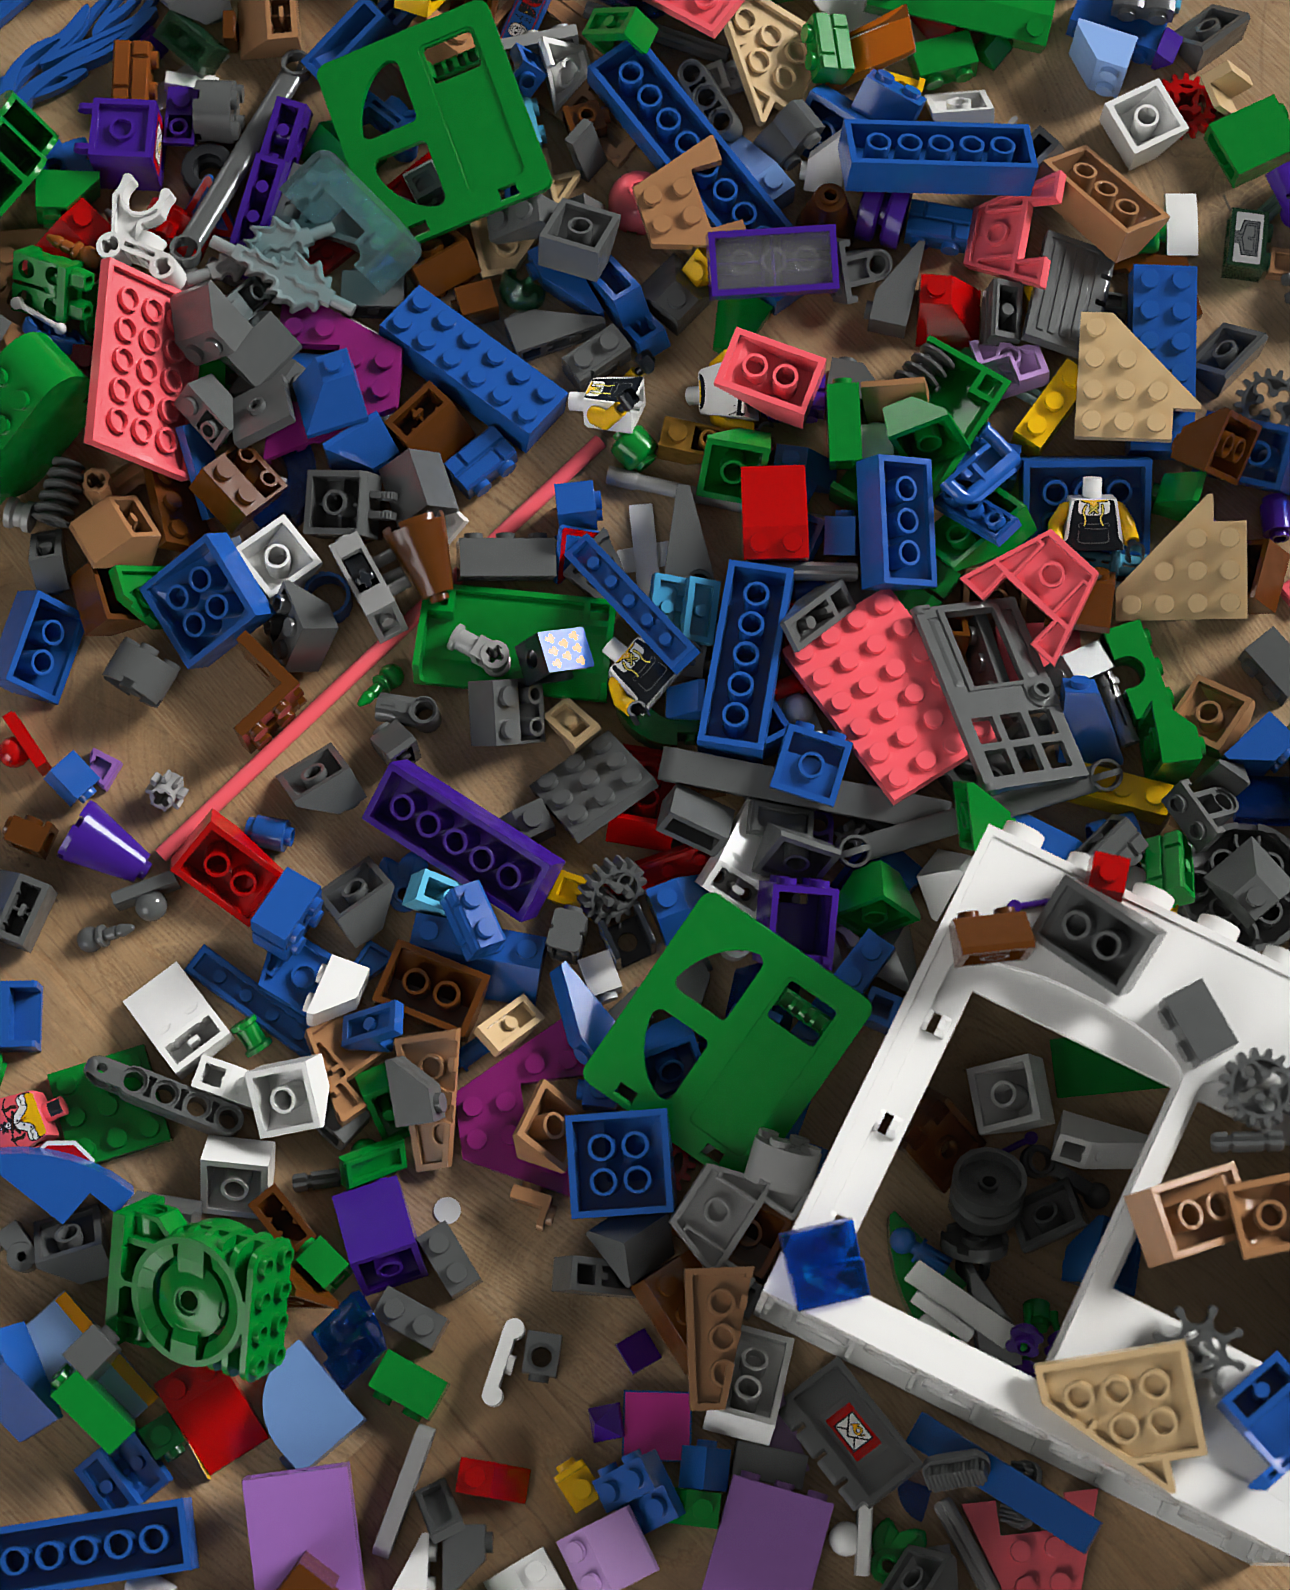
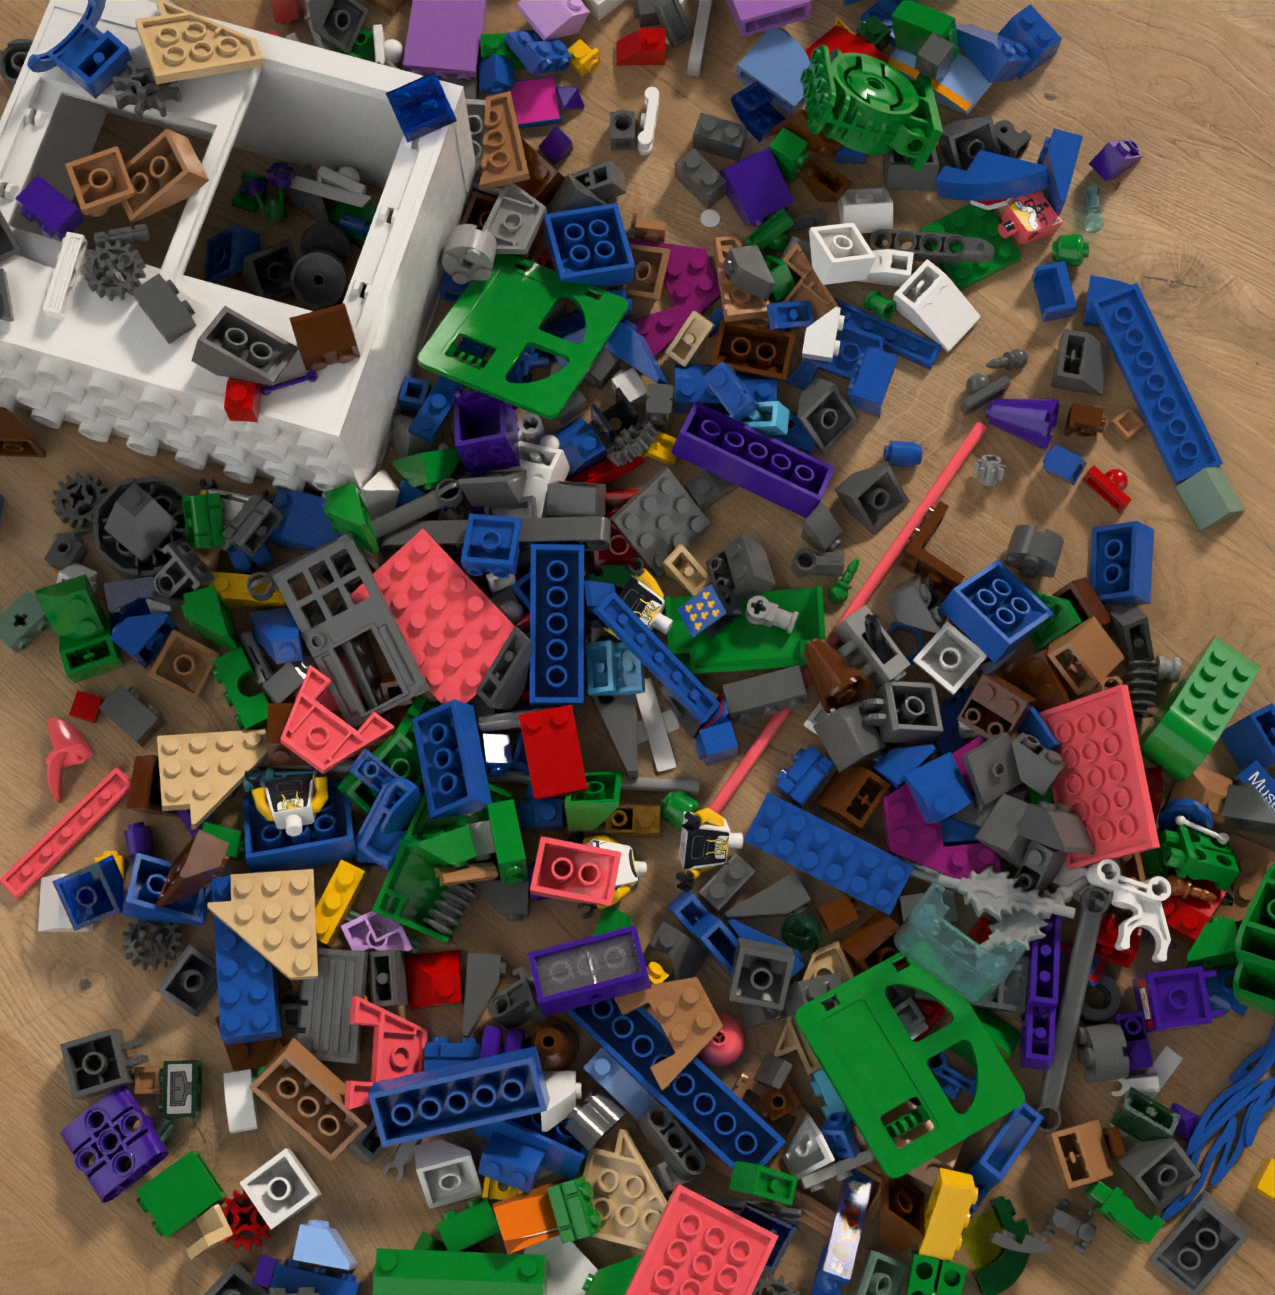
camera: 170 degrees right, 0 degrees up
(105, 767) = (1043, 484): medium lavender tile -> none
(134, 70) = (1187, 1079): dark orange brick -> none
(226, 866) = (928, 419): red slope -> none
(408, 1385) = (710, 96): green brick -> none

